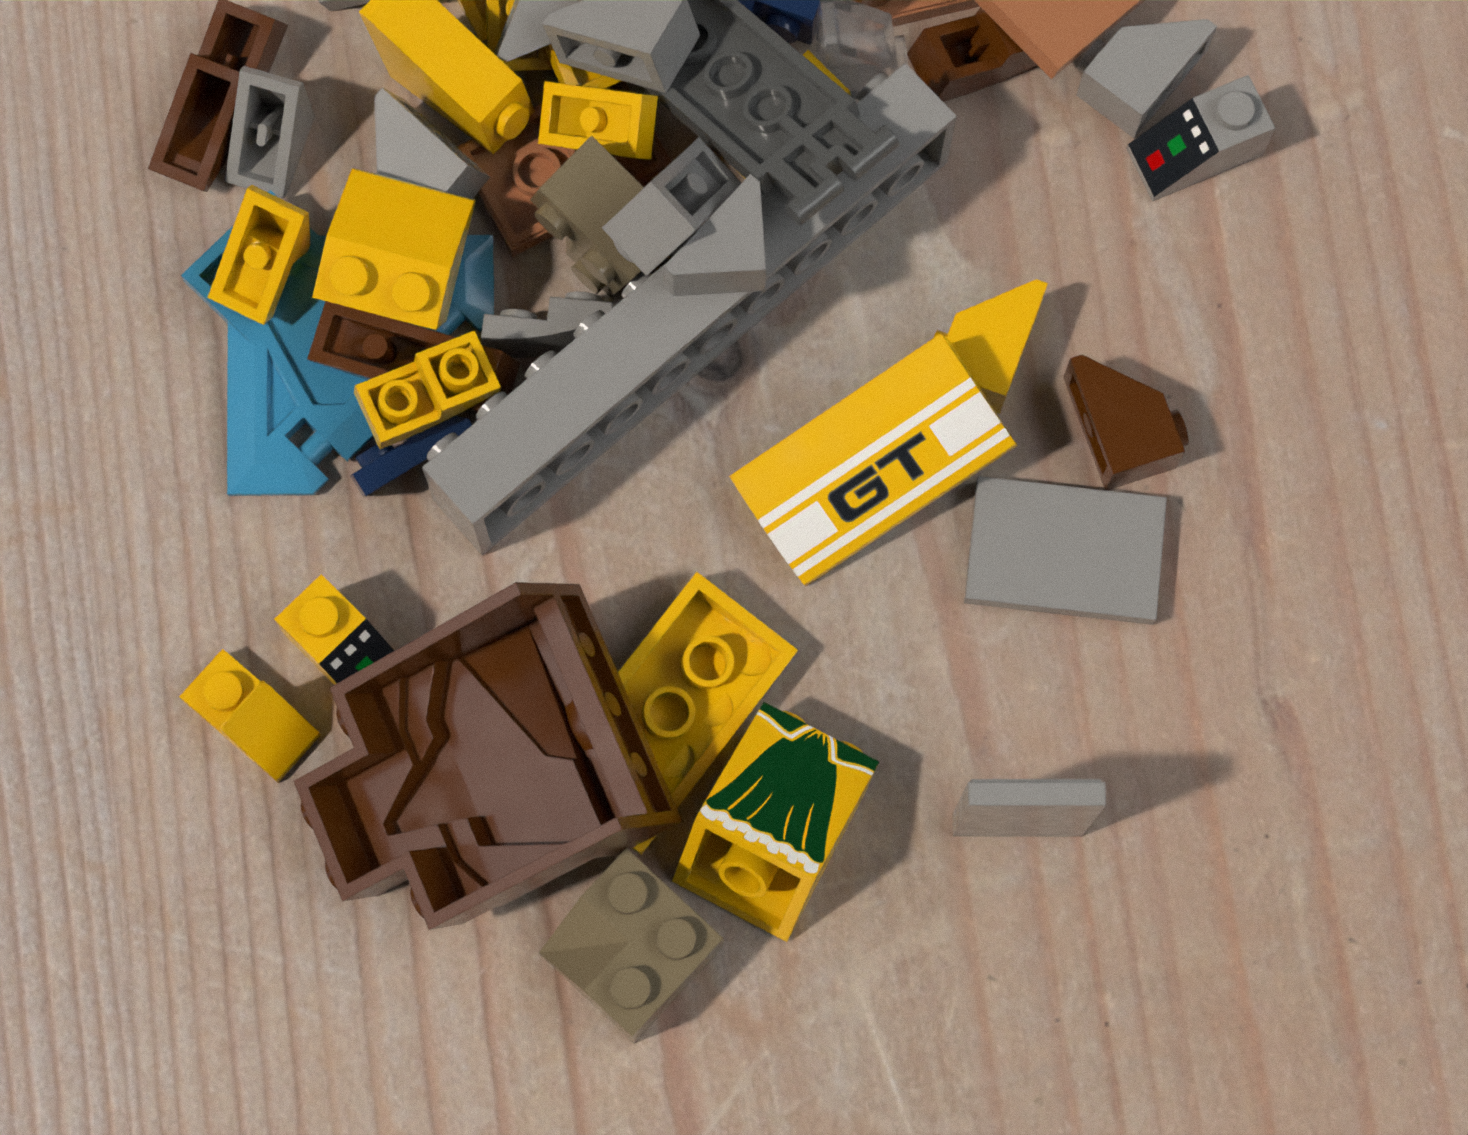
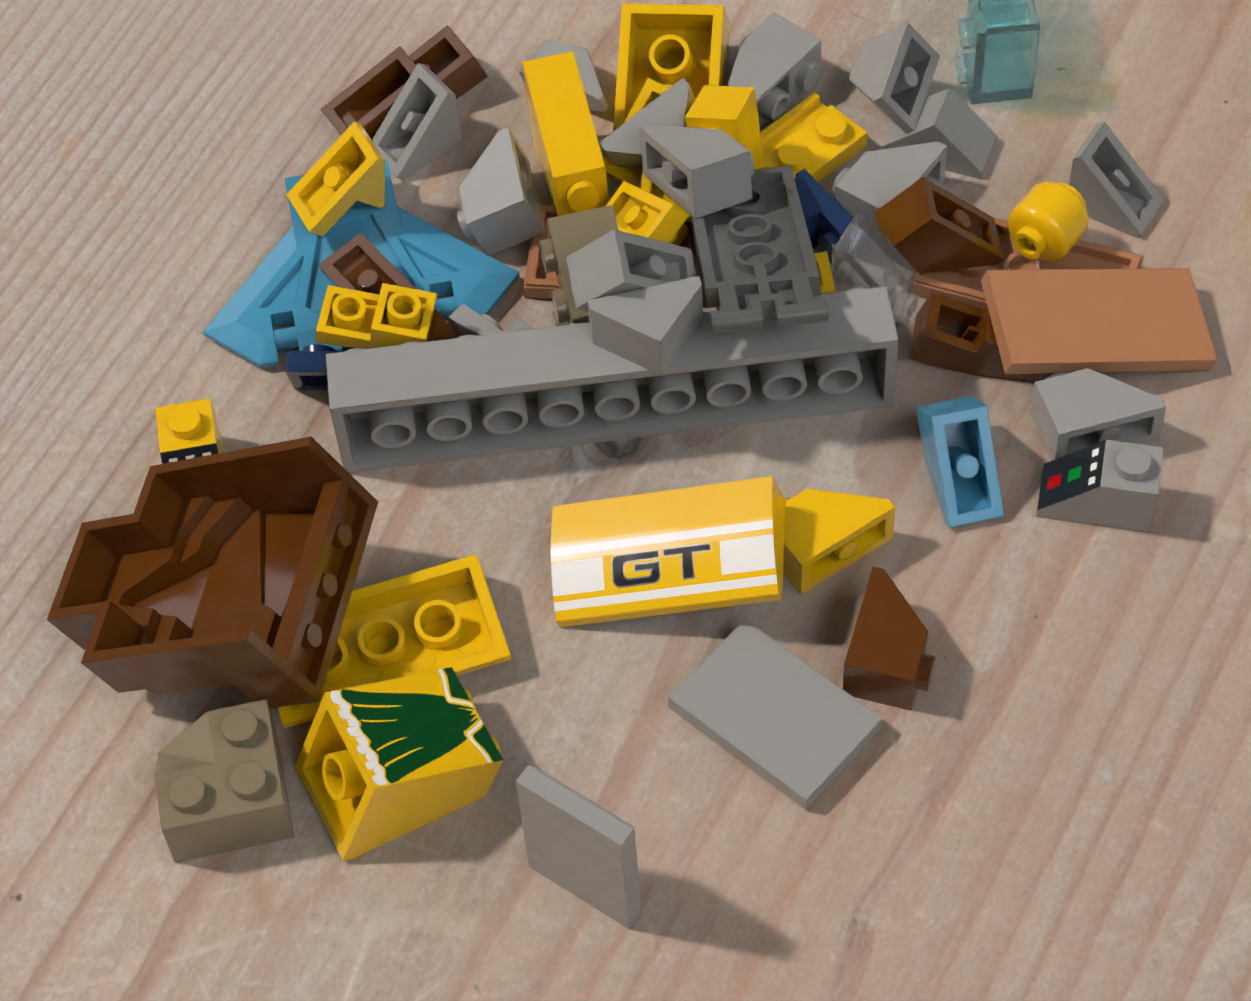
camera: 40 degrees right, 20 degrees down
(250, 715) = (96, 473): yellow slope -> none
(394, 249) = (431, 226): yellow slope -> none
(1058, 187) = (961, 459): none -> dark azure slope

